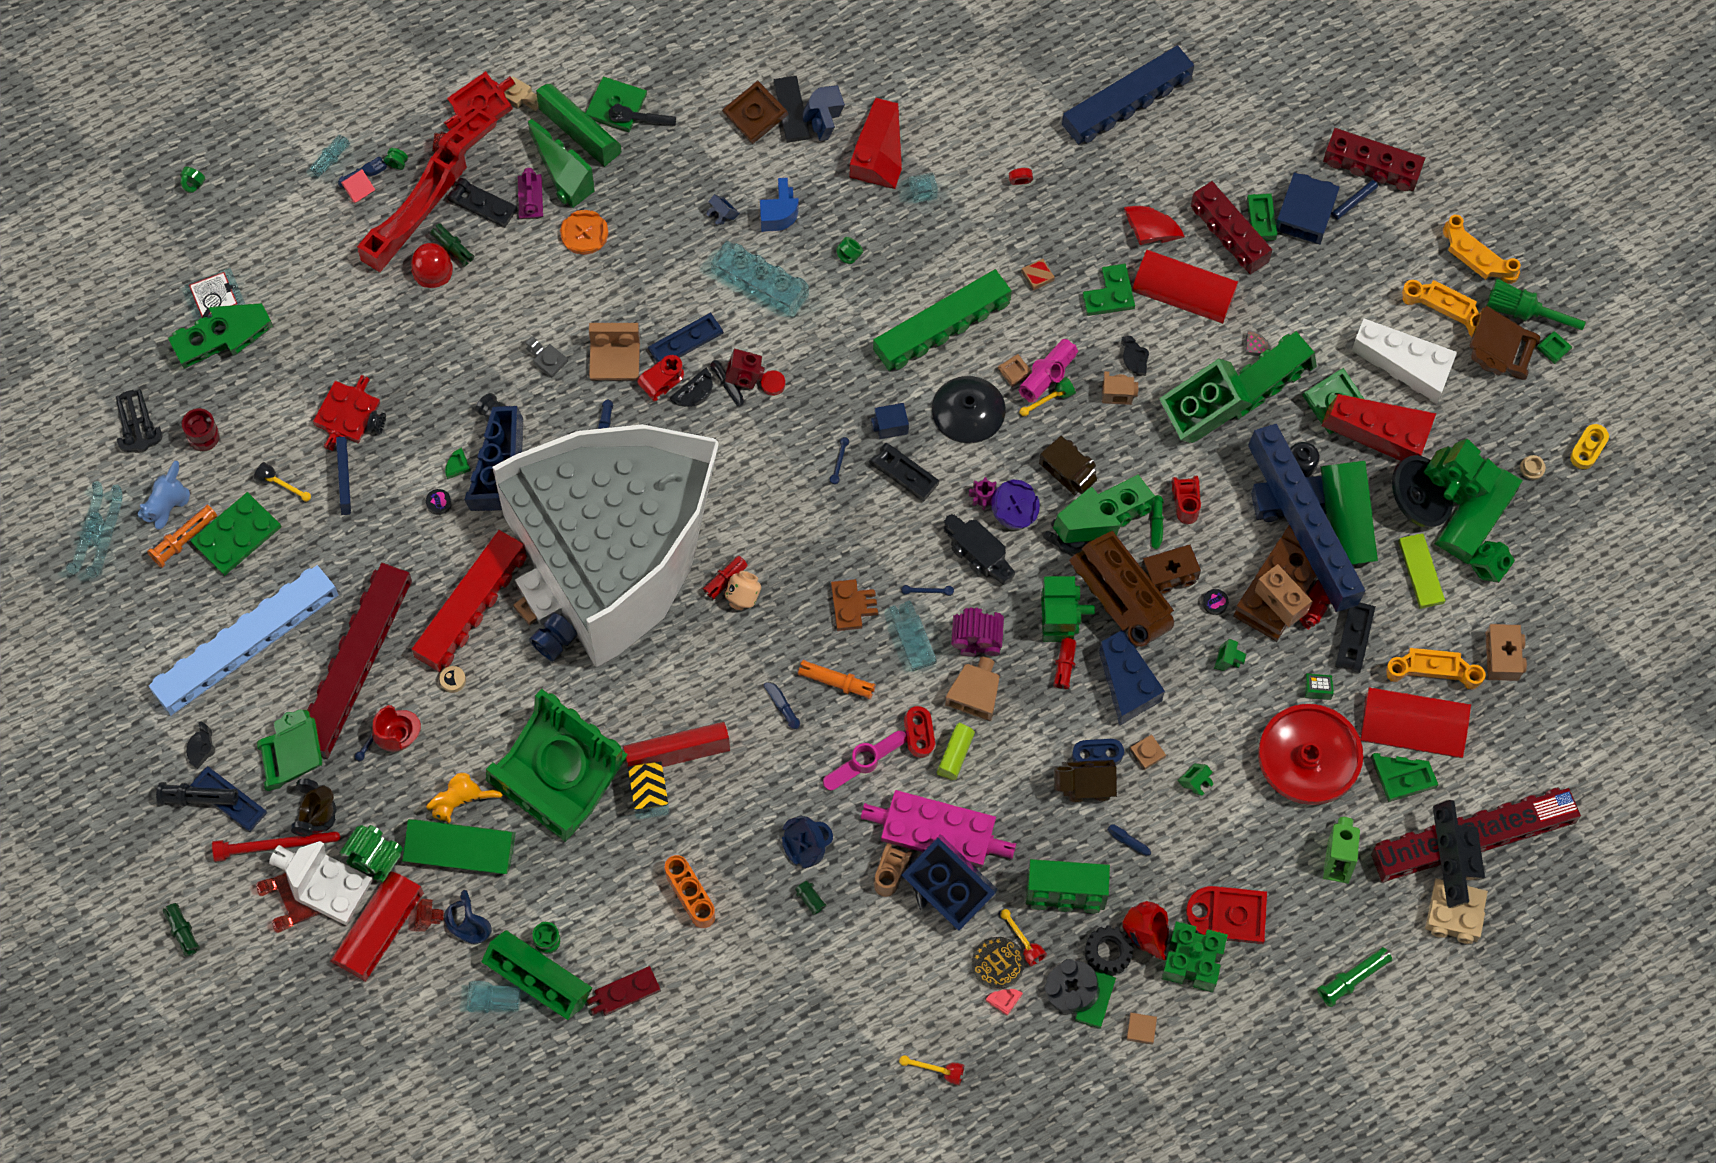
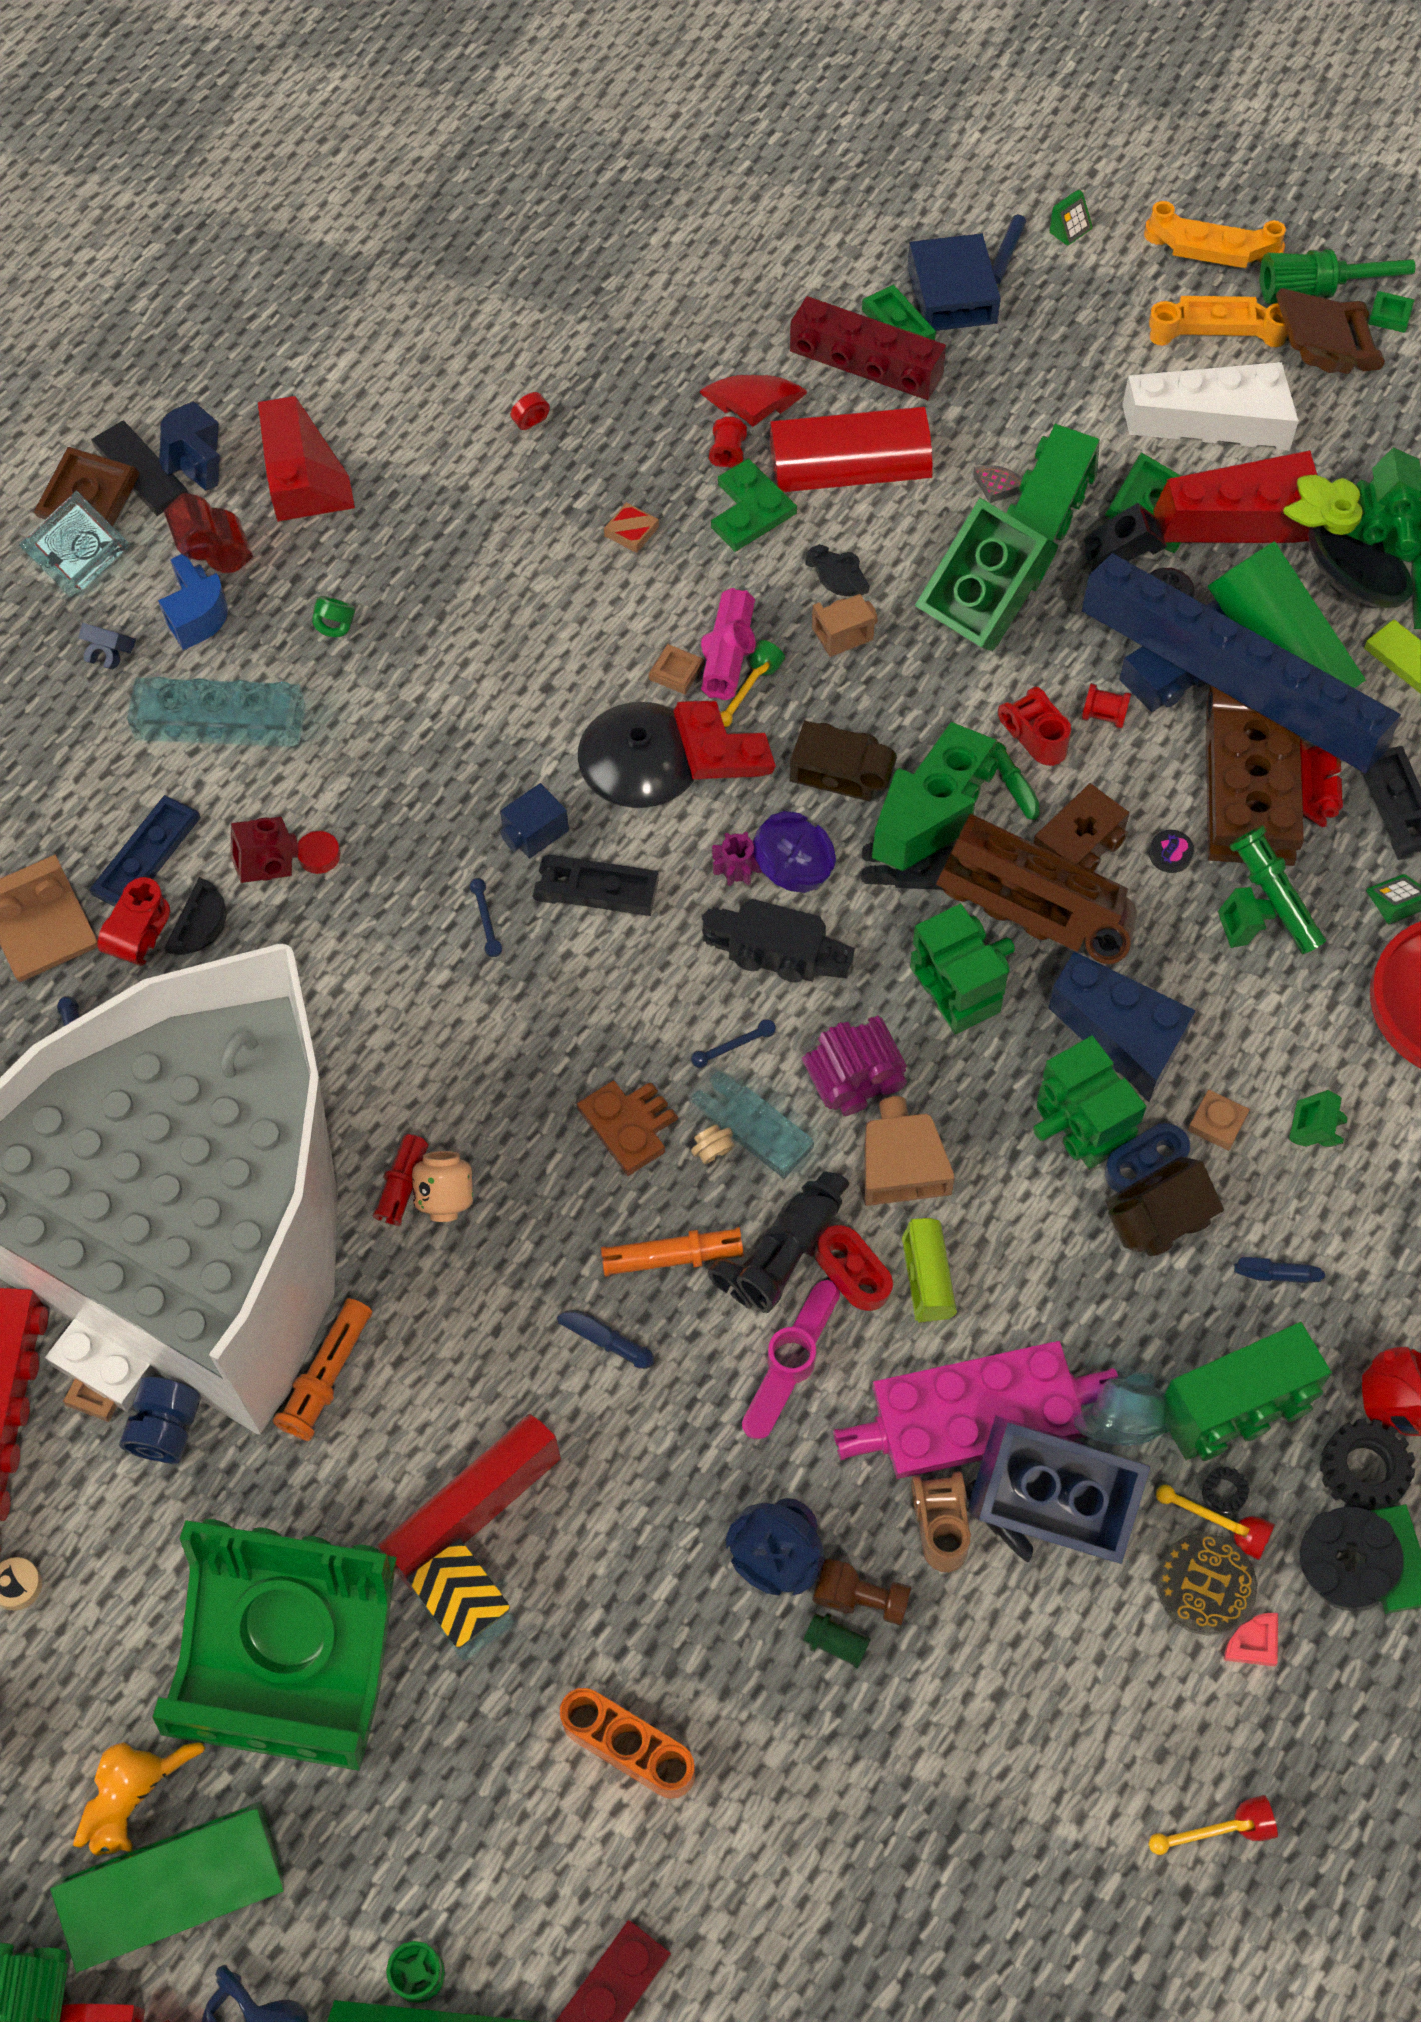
camera: 25 degrees left, 5 degrees down
(630, 661) = (309, 1387): none -> orange pin
(732, 389) = (255, 890): black piece -> none
(733, 141) = (74, 544): none -> clear light blue tile
(805, 172) = (208, 533): none -> clear red brick
(826, 877) = (843, 1590): none -> reddish brown leg
(886, 635) = (713, 1142): none -> tan plate
(897, 701) = (794, 1232): none -> black piece
(923, 187) = (396, 485): clear light blue brick -> none
(942, 320) = (528, 648): green brick -> none
(1005, 865) = (1126, 1412): none -> clear light blue piece
(1007, 430) = (713, 751): none -> red plate
(1031, 919) = (1236, 1501): none -> black bush
(1065, 663) = (1012, 1048): red axle -> none
(1079, 709) = (1087, 1103): none -> green brick
(1119, 248) = (728, 434): none -> red bush
(1127, 95) = (618, 250): dark blue brick -> none
(1231, 505) = (1106, 706): none -> red bush
(1250, 637) = (1269, 873): none -> green pin
(1283, 595) = (1283, 782): medium nougat brick -> none
(1300, 415) = (1125, 536): none -> black leg
(1373, 160) = (999, 187): dark red brick -> none
(1403, 198) = (1070, 218): none -> slope
(1418, 447) = (1326, 504): none -> lime plate

